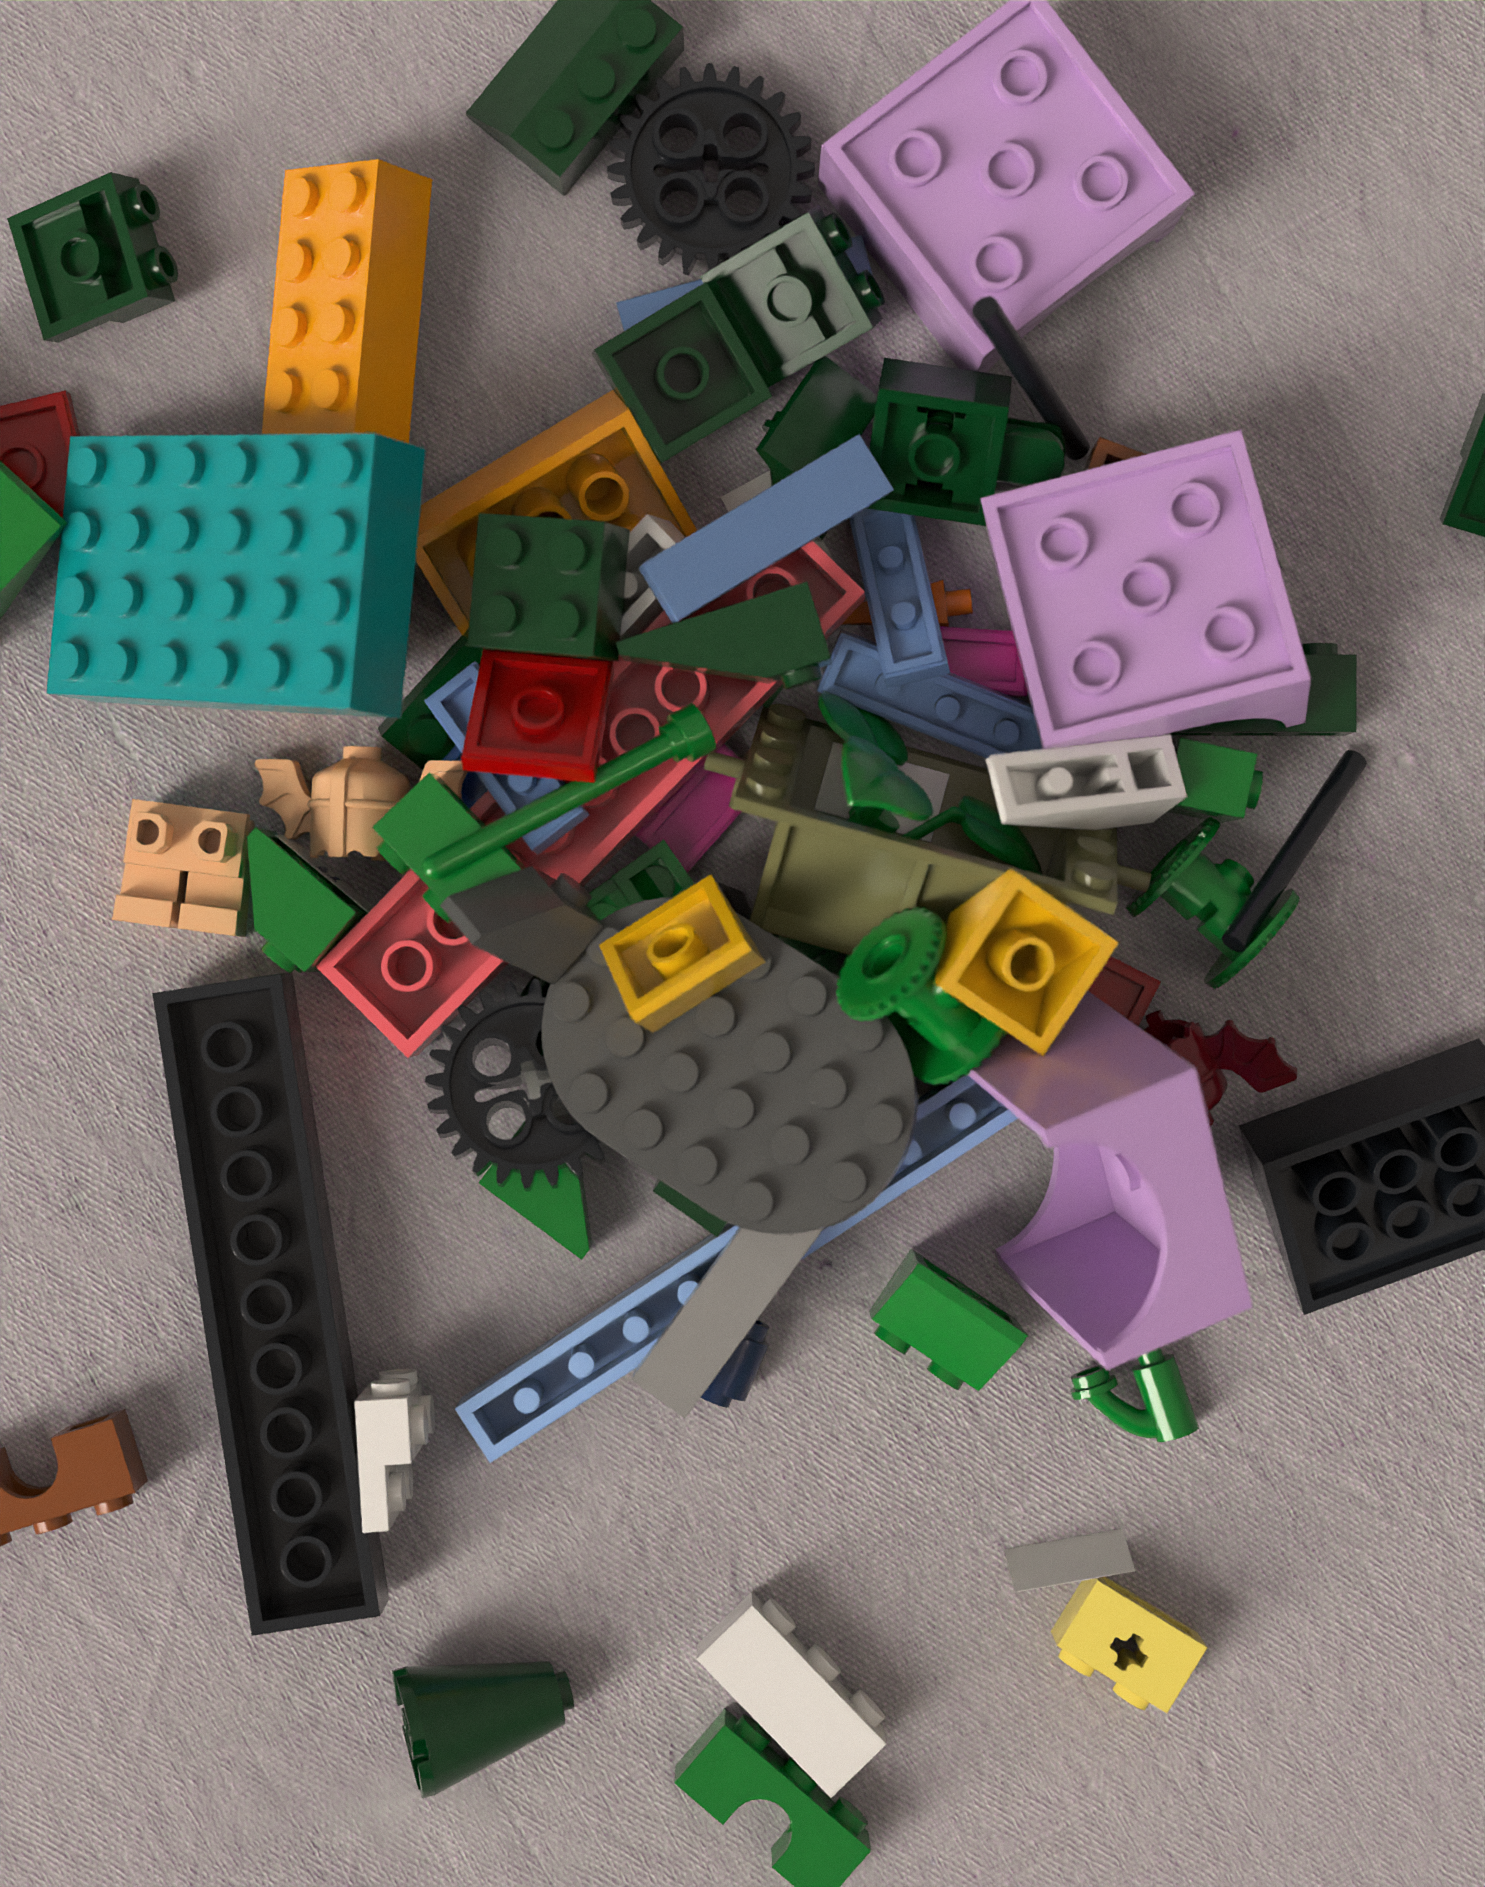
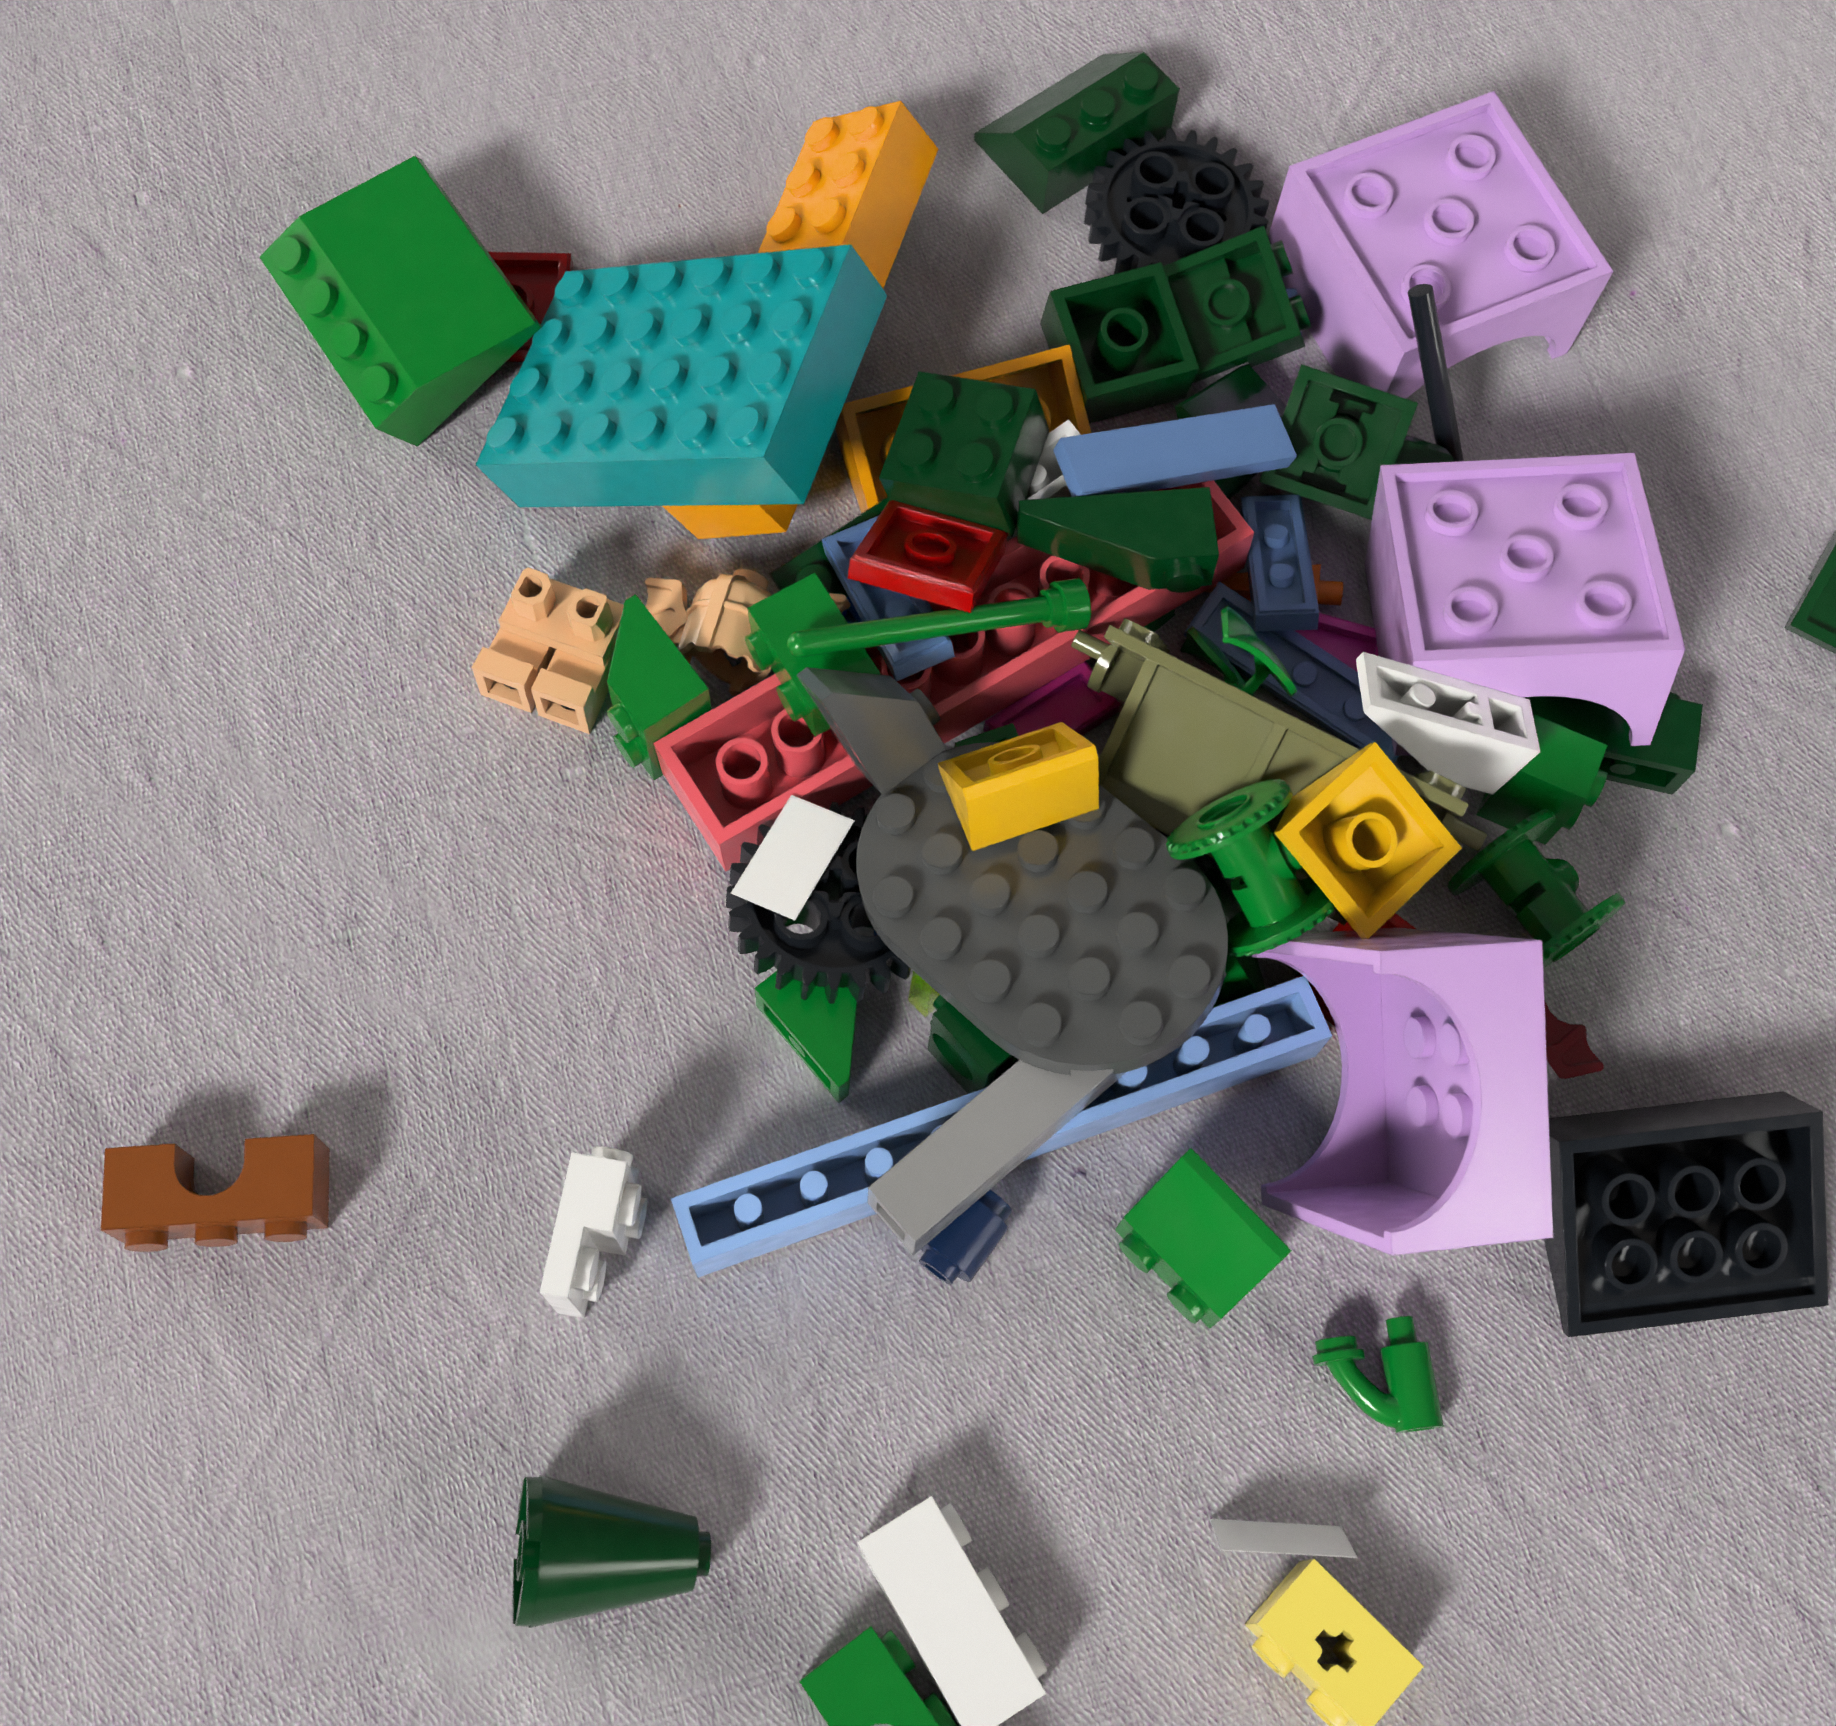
camera: 10 degrees right, 20 degrees down
(93, 256) = (629, 157): dark green plate -> none
(270, 1300) = (509, 1073): black brick -> none
(482, 1060) = (792, 857): none -> white sticker
(1294, 851) = (1620, 865): black bar -> none

